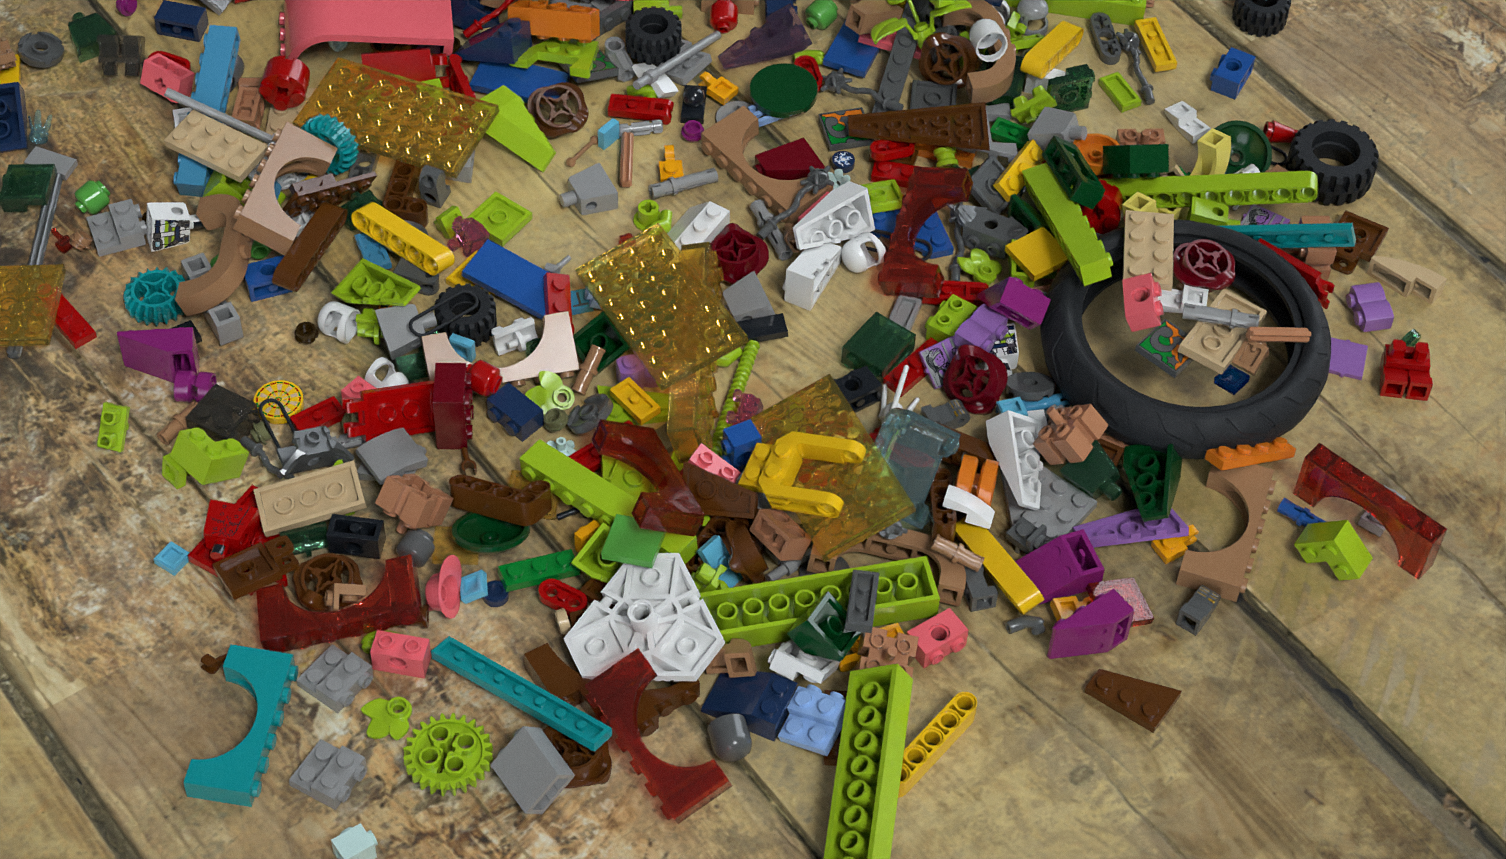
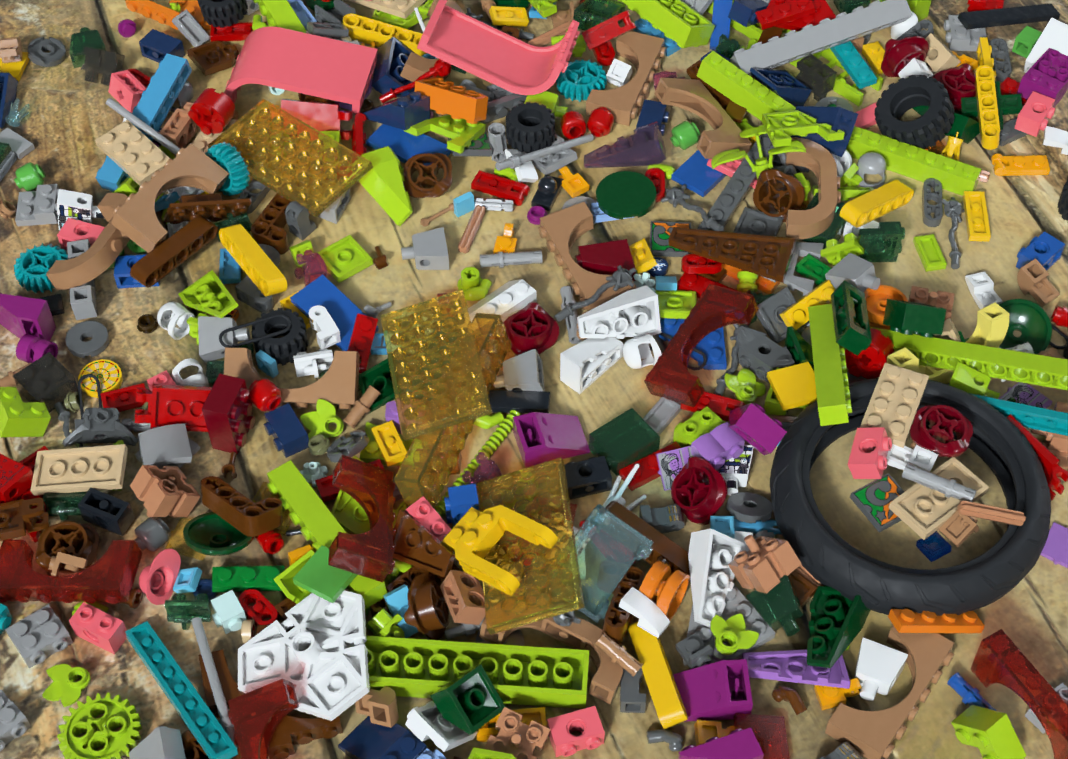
camera: 20 degrees right, 0 degrees up
(179, 247) = (78, 230): none -> coral brick
(242, 352) = (83, 330): none -> dark grey tile
(249, 18) = (213, 57): none -> reddish brown plate
(488, 616) = (183, 610): none -> clear green hips
(514, 294) = (328, 332): none -> white leg
(533, 607) = (228, 612): none -> light aqua brick
(539, 211) = (380, 261): none -> reddish brown hand
(546, 528) = (270, 542): none -> red cone
(549, 668) = (213, 677): none -> light grey bar
(695, 24) = (573, 125): none -> red head
(797, 361) = (548, 437): none -> magenta slope
(827, 151) = (642, 256): none -> yellow plate
(861, 176) = (666, 283): none -> medium azure tile
(862, 601) = (509, 681): dark grey tile -> none
(985, 34) = (814, 178): white helmet -> none
(1058, 509) = (734, 632): none -> lime plate
(1132, 556) = (789, 695): none -> reddish brown arm
(1207, 510) = (878, 668): none -> white torso
(1234, 100) = (1033, 280): none -> medium nougat brick

